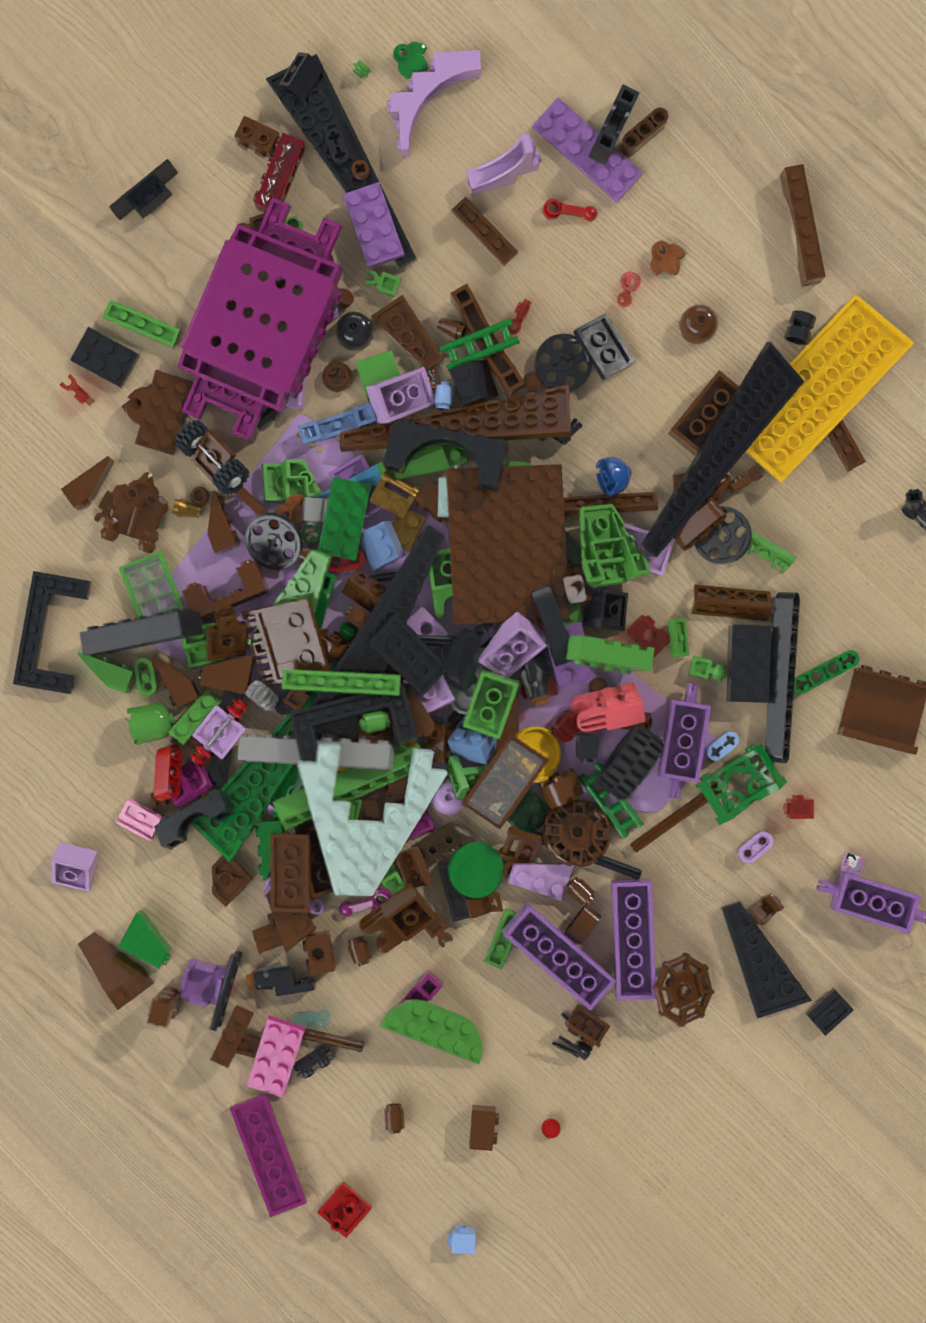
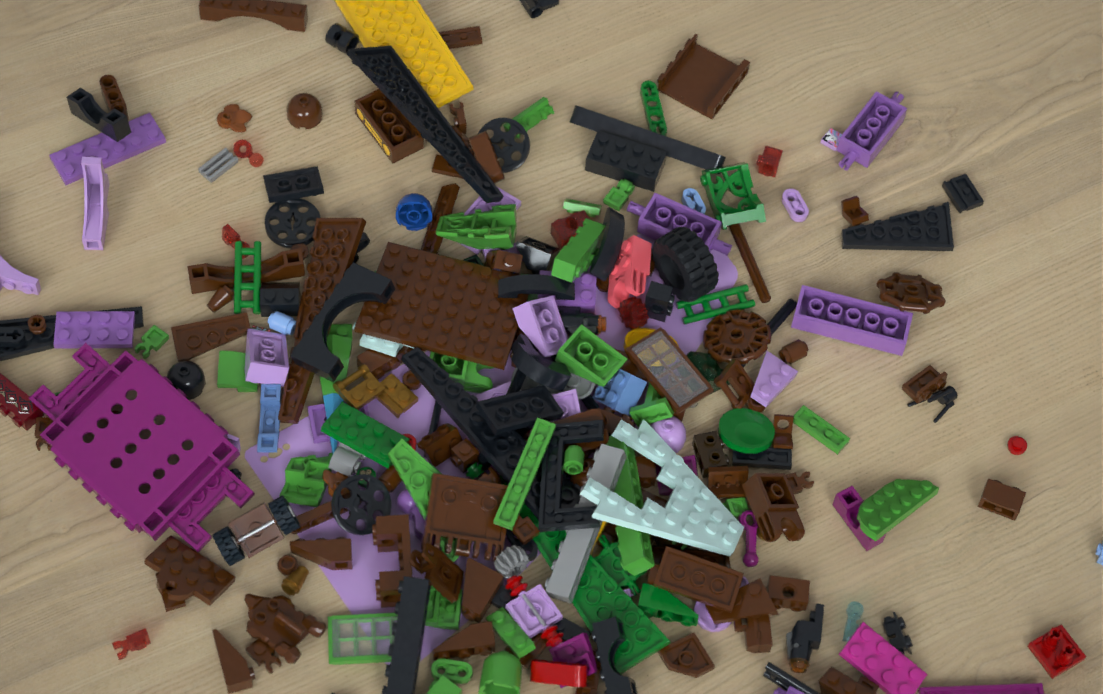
camera: 75 degrees left, 30 degrees down
(104, 357) = (108, 611): black plate -> none
(142, 324) = (91, 564): bright green plate -> none
(330, 370) = (220, 401): reddish brown gear -> none
(333, 1040) = (881, 608): reddish brown axle -> none
(359, 951) = (796, 557): reddish brown brick -> none
(381, 545) = (404, 414): medium blue slope -> none
(394, 1118) = (973, 577): reddish brown brick -> none
(484, 231) = (143, 246): reddish brown plate -> none
(558, 955) = (849, 382): medium lavender brick -> none
(561, 788) = (691, 333): reddish brown brick -> none
(582, 924) = (826, 359): reddish brown beam -> none
(589, 213) = (165, 164): red piece -> none
(622, 265) = (217, 162): none -> light grey tile
(631, 682) = (610, 245): none -> black slope
(731, 606) = (567, 160): reddish brown fence -> none

